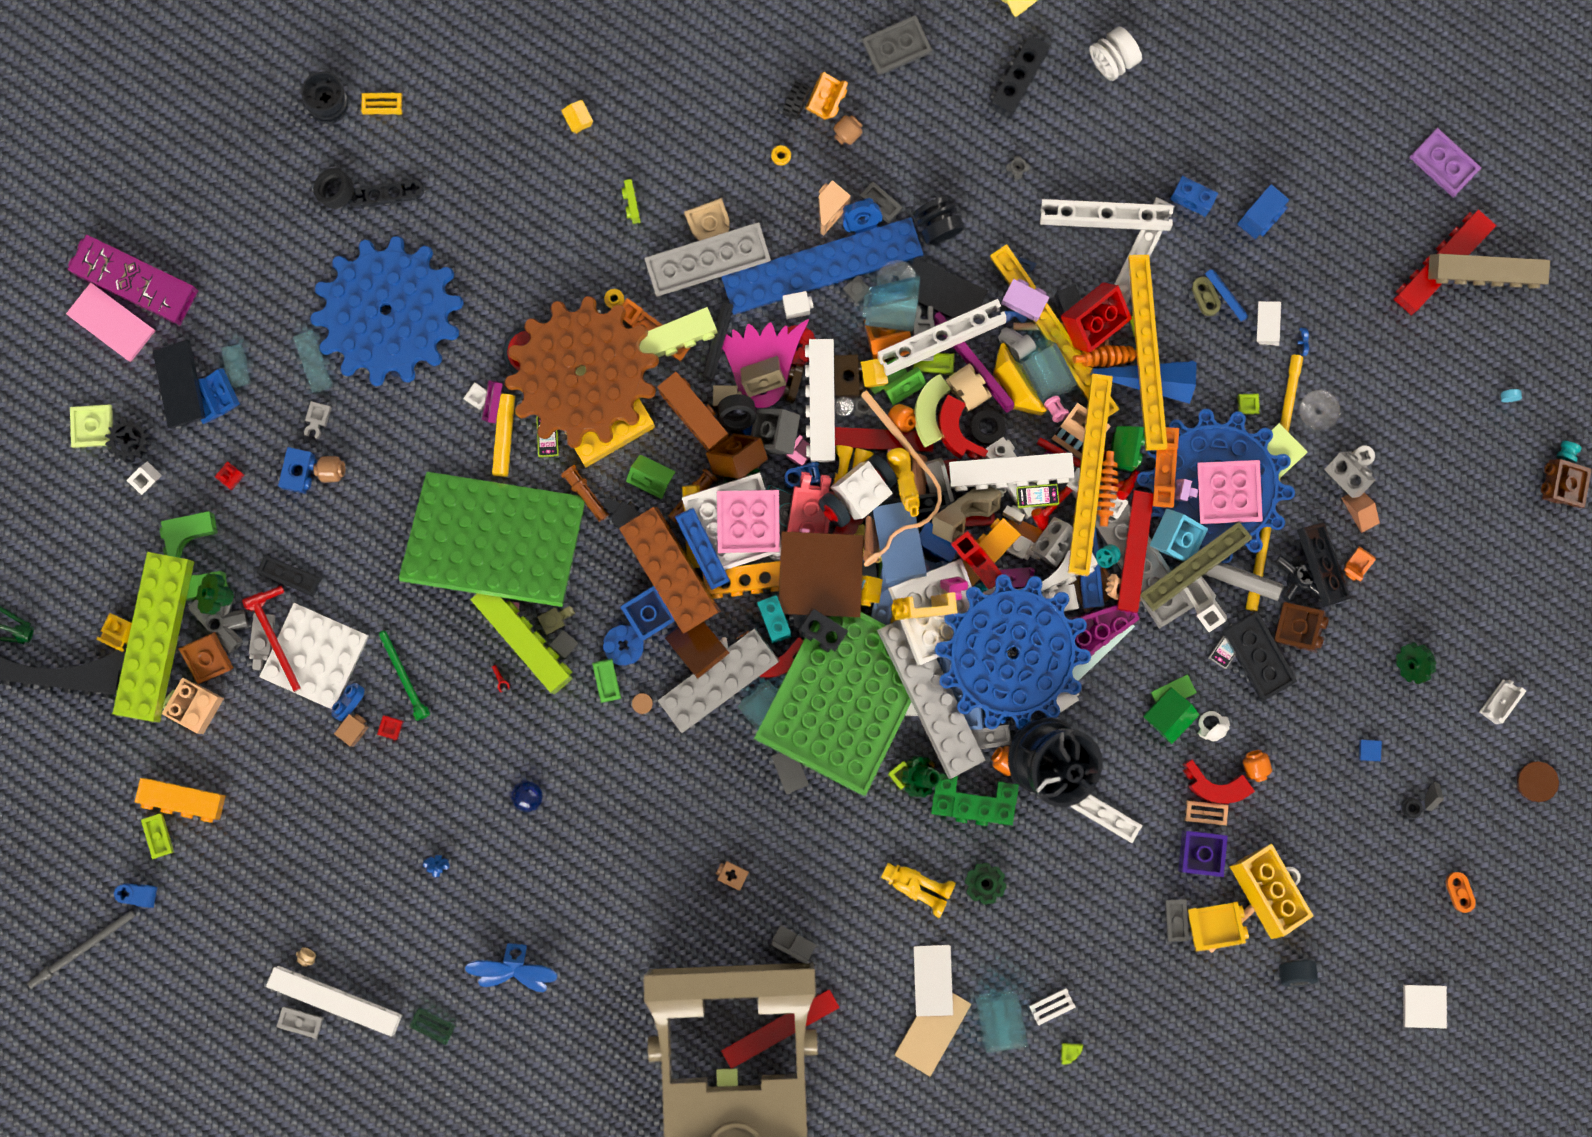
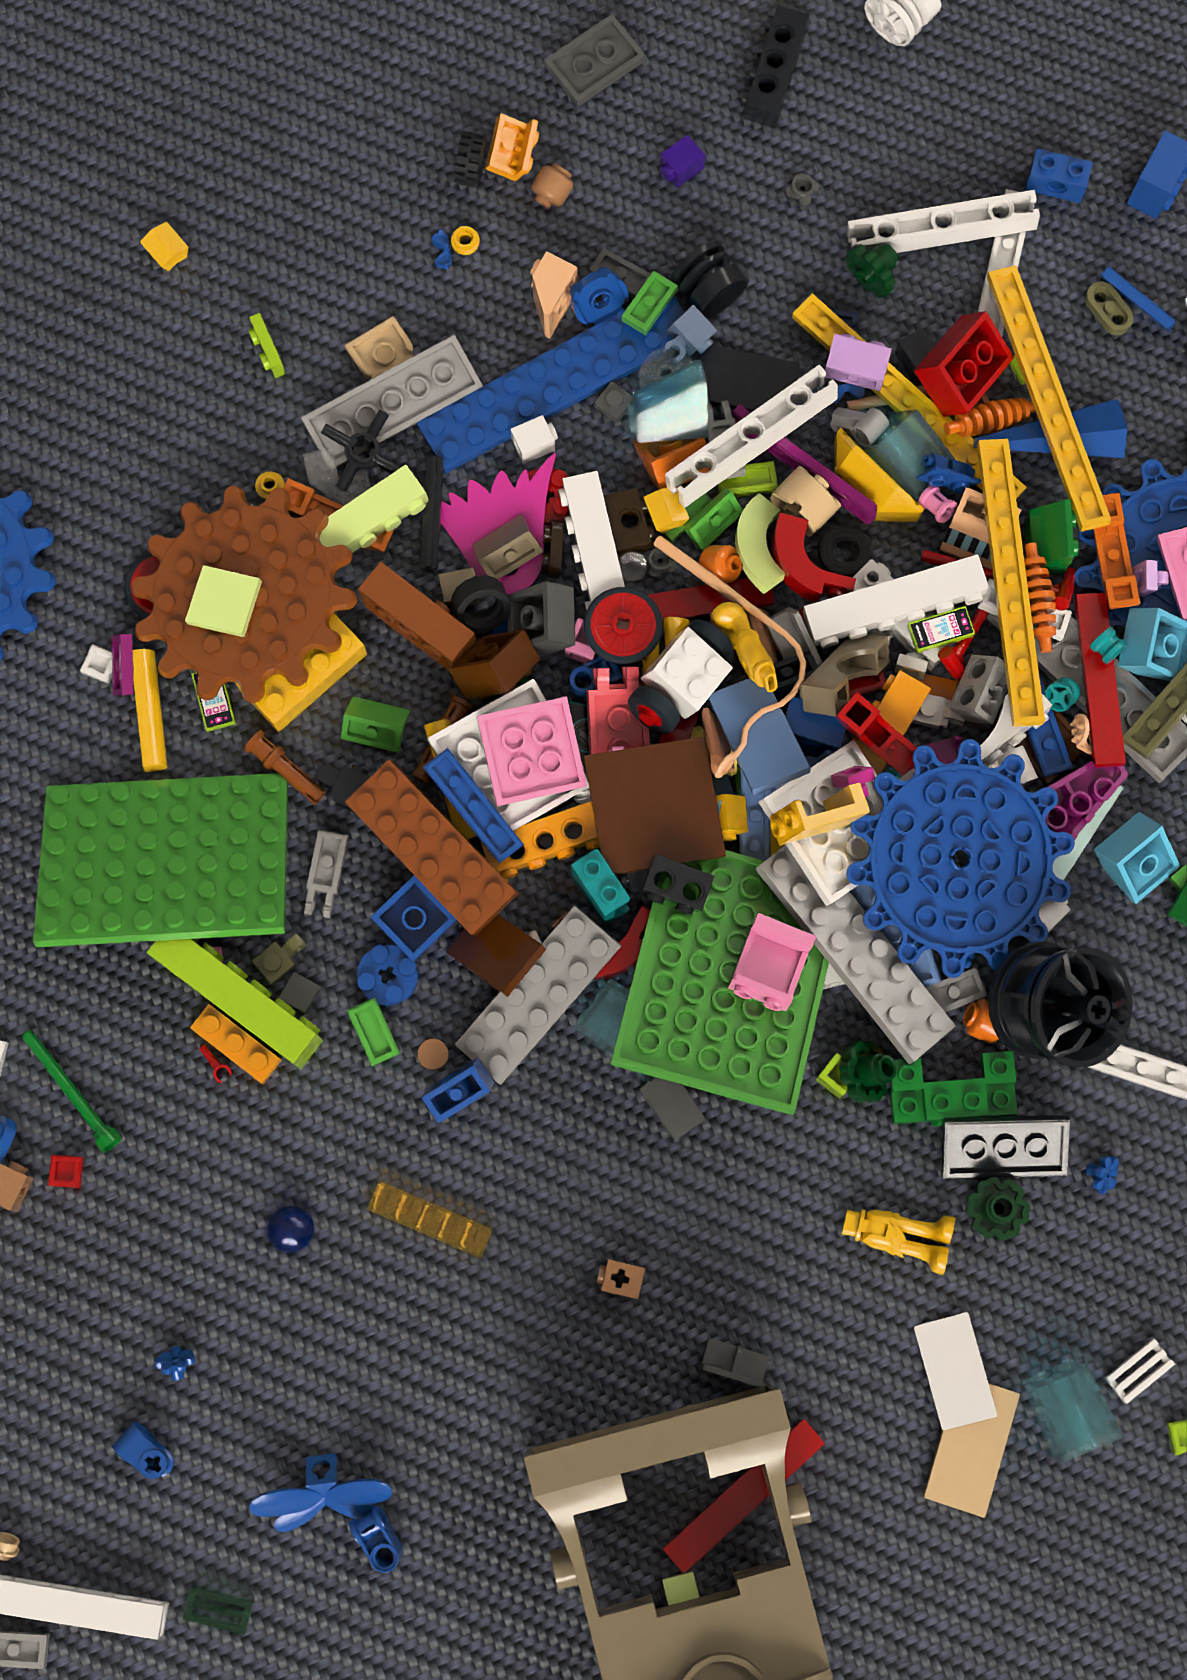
camera: 10 degrees left, 5 degrees down
(403, 914) = (140, 1447): none -> blue piece
(516, 668) = (235, 1044): none -> light orange plate
(541, 1000) = (375, 1537): none -> blue piece
(567, 376) = (223, 601): none -> yellowish green tile
(598, 567) = (326, 870): none -> light grey hinge
(617, 809) = (430, 1219): none -> clear yellow tile
(651, 300) = (323, 475): none -> clear tile
(653, 731) = (458, 1090): none -> blue brick
(674, 297) = (356, 461): none -> black bar
(764, 151) = (441, 241): none -> blue piece
(832, 435) = (619, 644): none -> red wheel
(873, 695) = (771, 963): none -> bright pink panel
(894, 228) = (649, 303): none -> bright green plate
(917, 256) = (689, 334): none -> sand blue brick
(939, 131) = (682, 161): none -> dark purple brick
(999, 845) = (1005, 1146): none -> tile
(1052, 235) = (873, 267): none -> dark green plant
(1059, 876) = (1104, 1173): none -> blue plant
(1061, 389) = (956, 477): none -> blue hinge
(1132, 674) = (1138, 856): none -> medium azure slope
(1145, 531) = (1108, 645): none -> teal wheel

